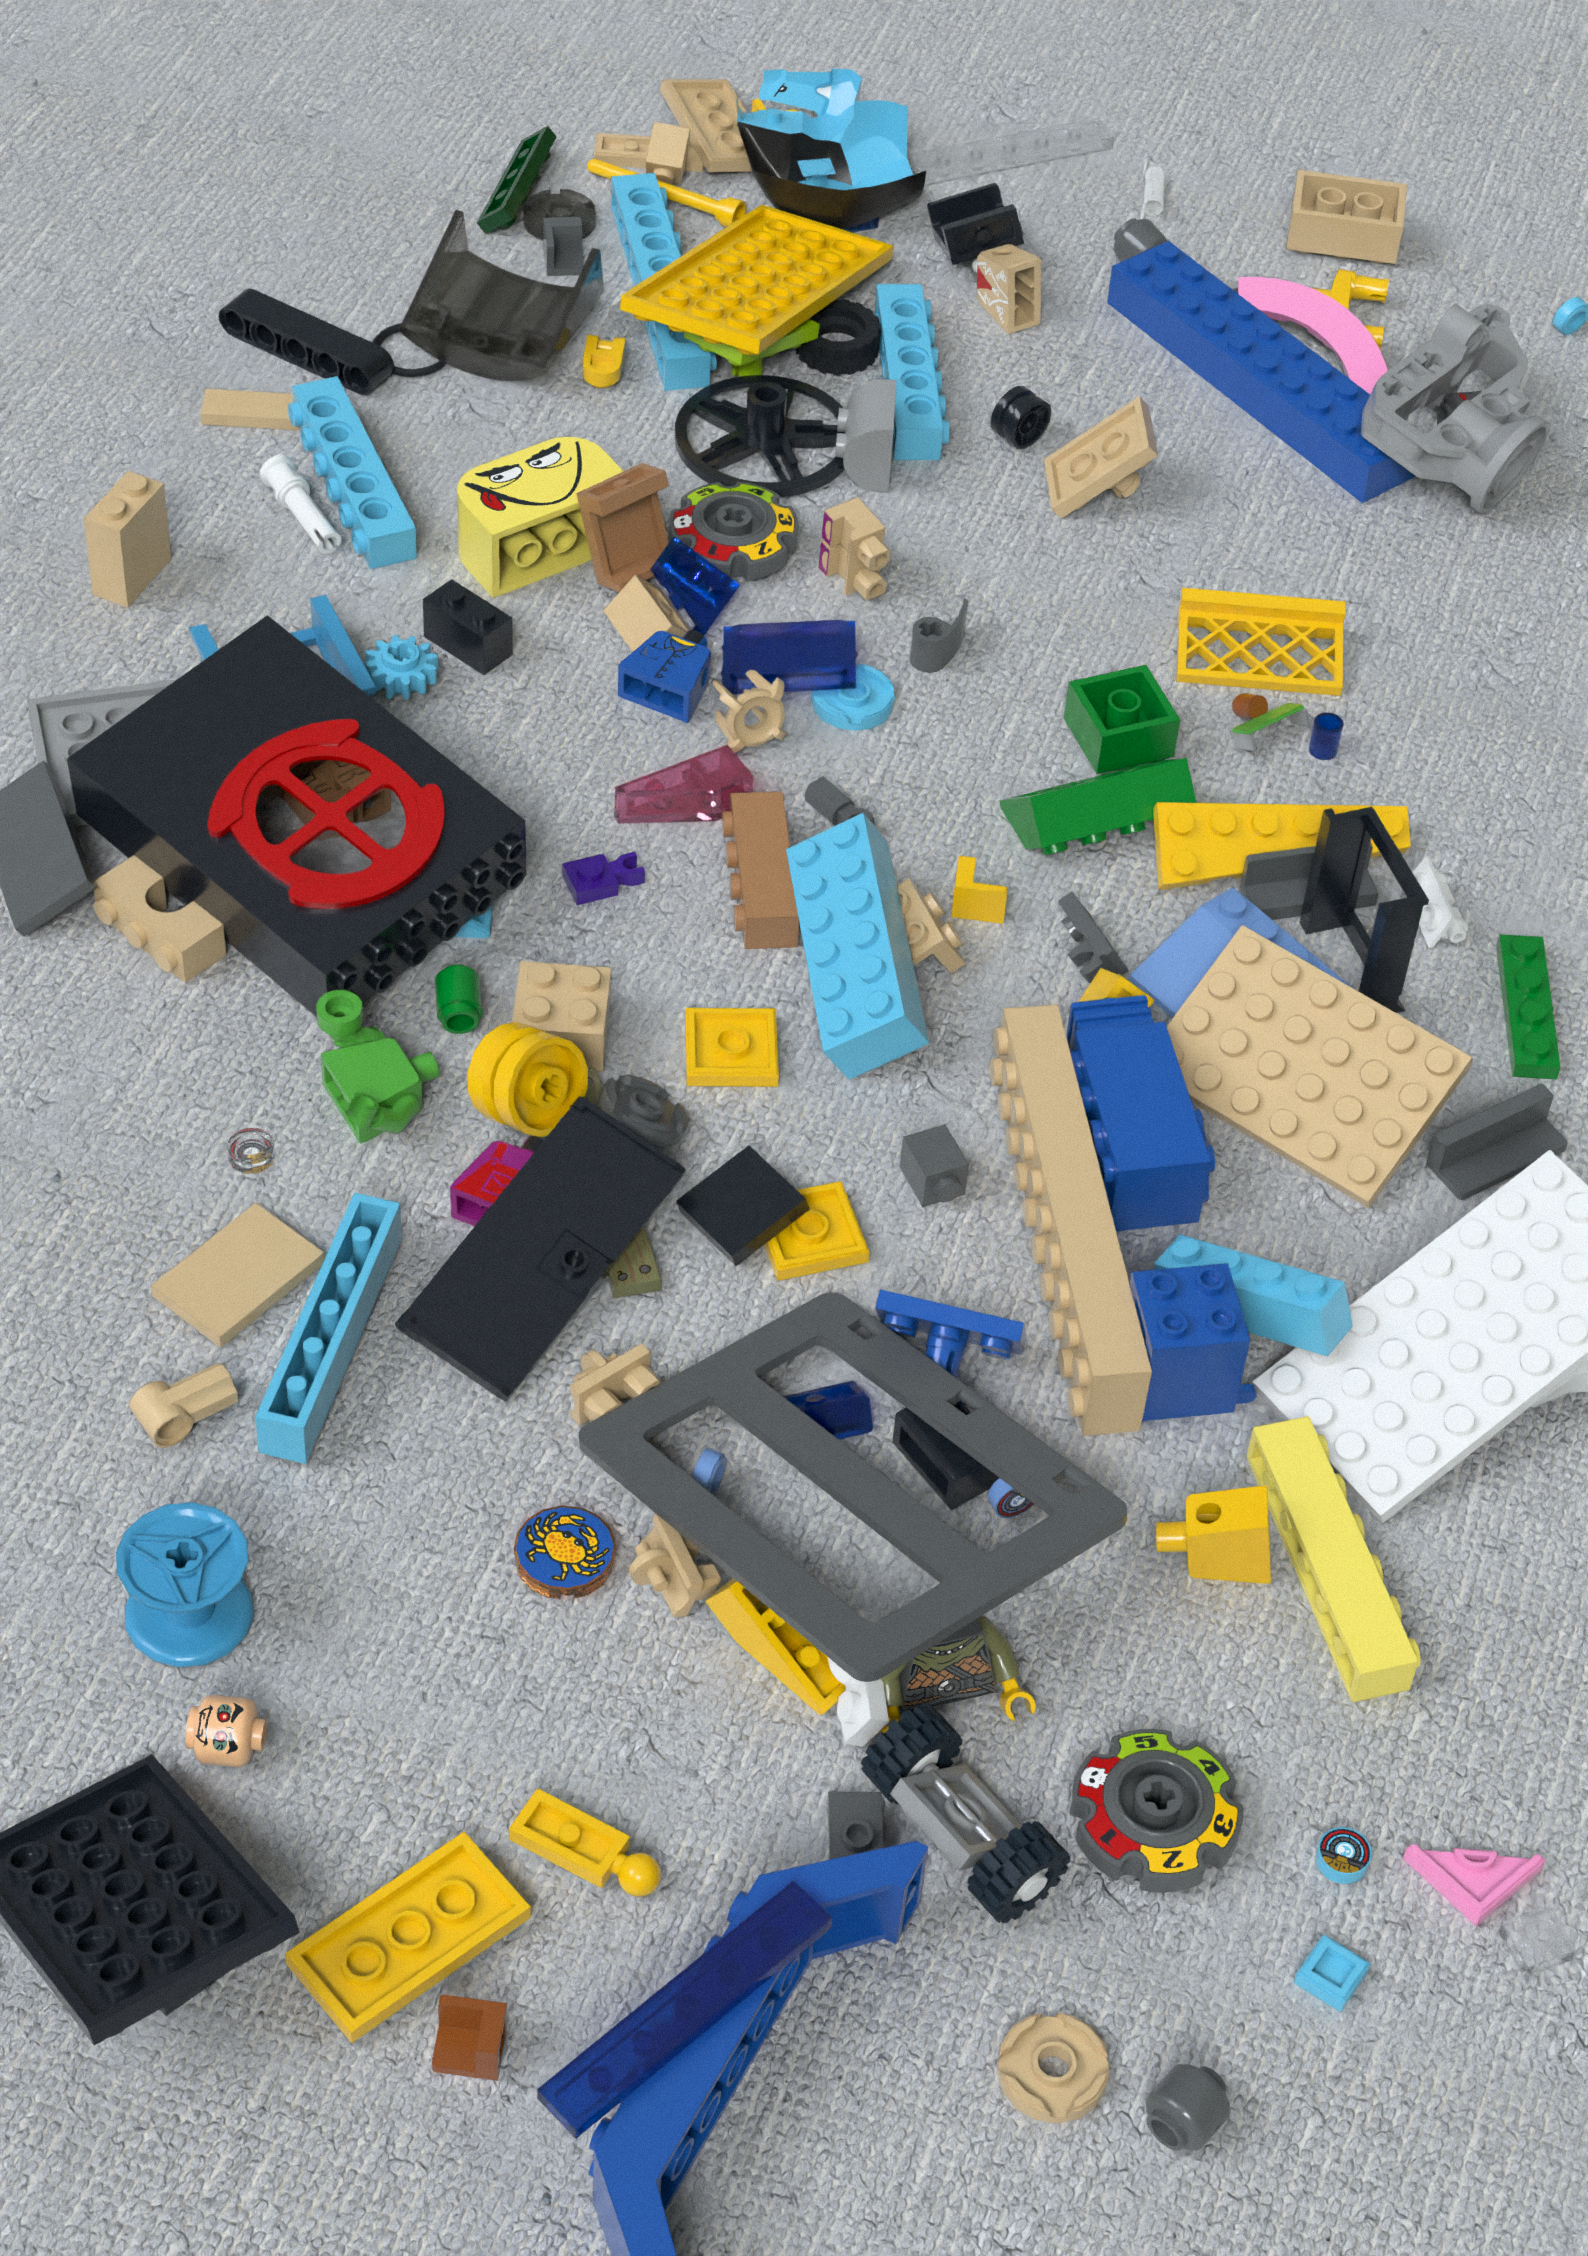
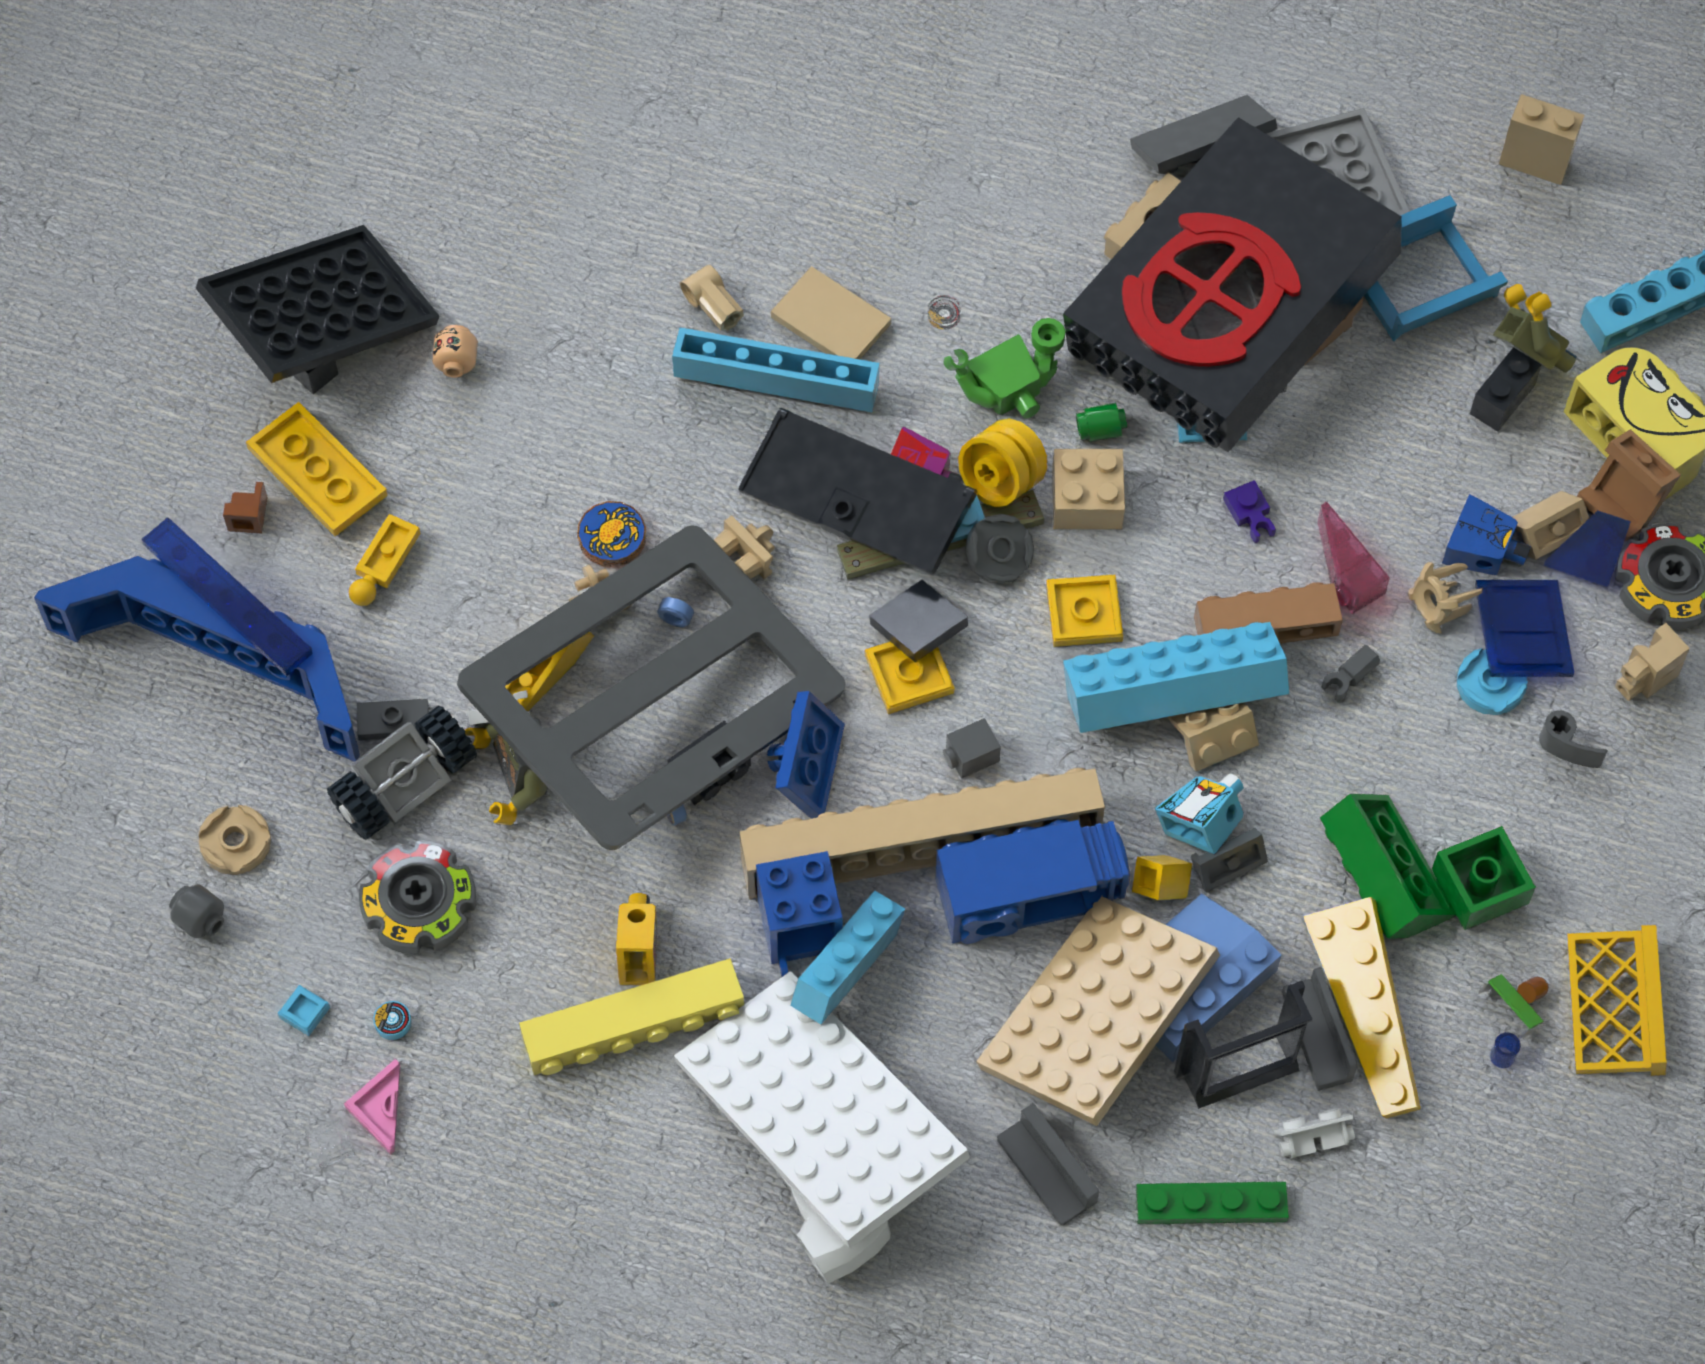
camera: 90 degrees right, 15 degrees up
(185, 1584) = (552, 309): dark azure piece -> none
(293, 493) = (1648, 253): white pin -> none
(402, 666) = (1452, 349): medium azure gear -> none
(403, 586) = (1532, 333): none -> olive torso
(838, 1408) = (739, 681): clear blue slope -> none
(974, 899) = (1270, 776): yellow panel -> none
(1038, 944) = (1203, 812): none -> medium azure torso

